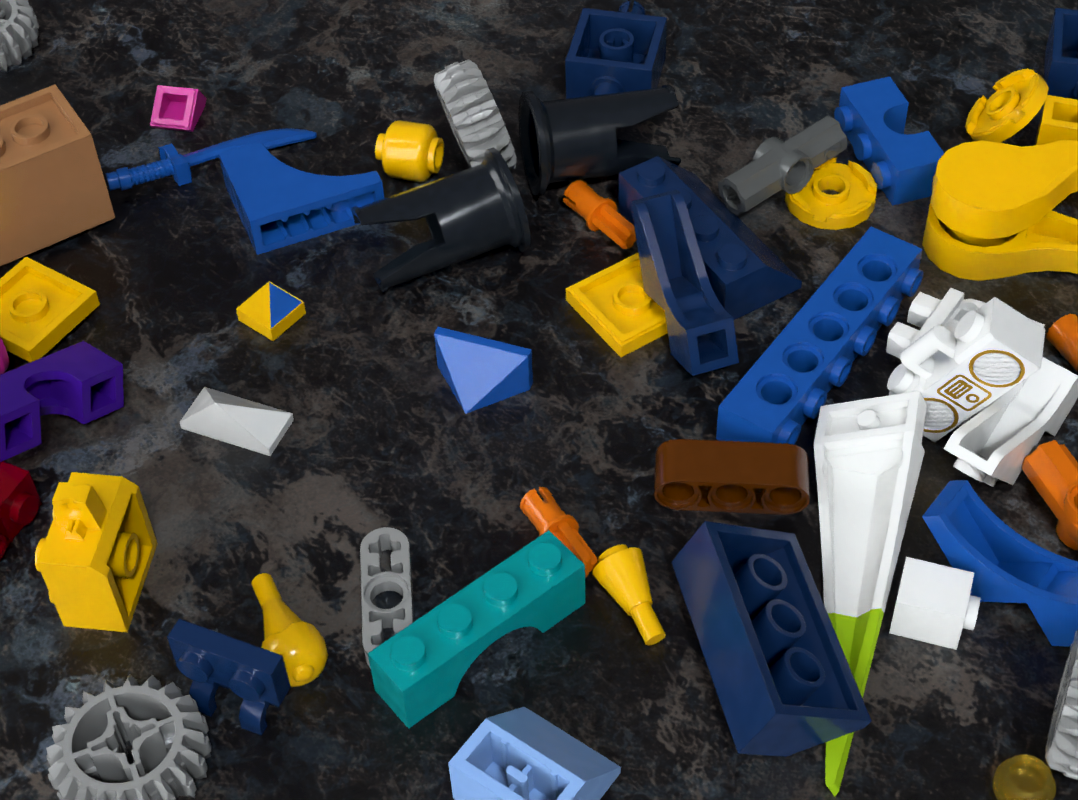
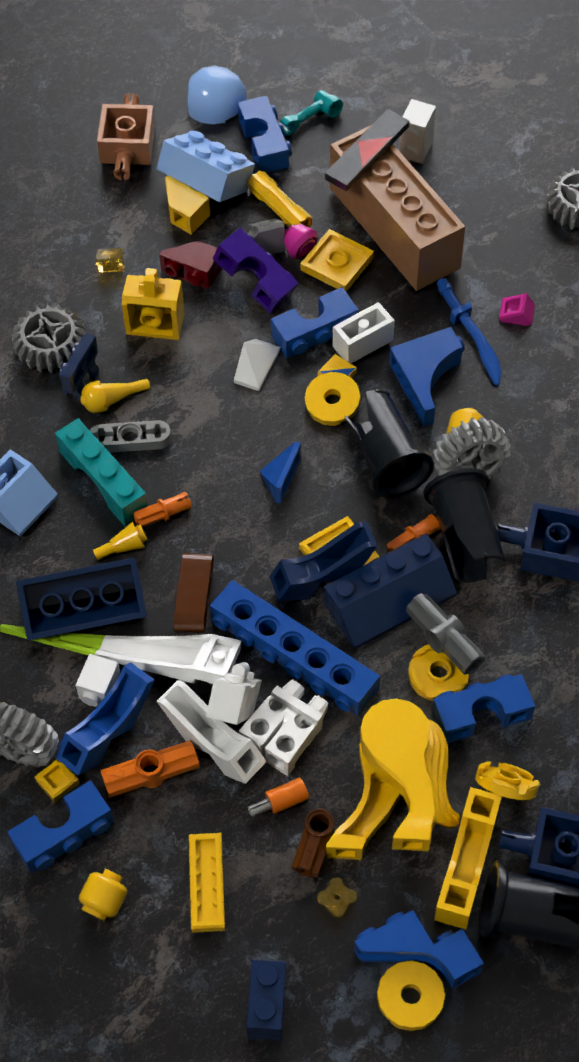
camera: 90 degrees right, 10 degrees up
(181, 352) = (298, 334): none -> blue arch
(209, 260) = (363, 333): none -> white brick
(330, 288) = (329, 384): none -> yellow tile

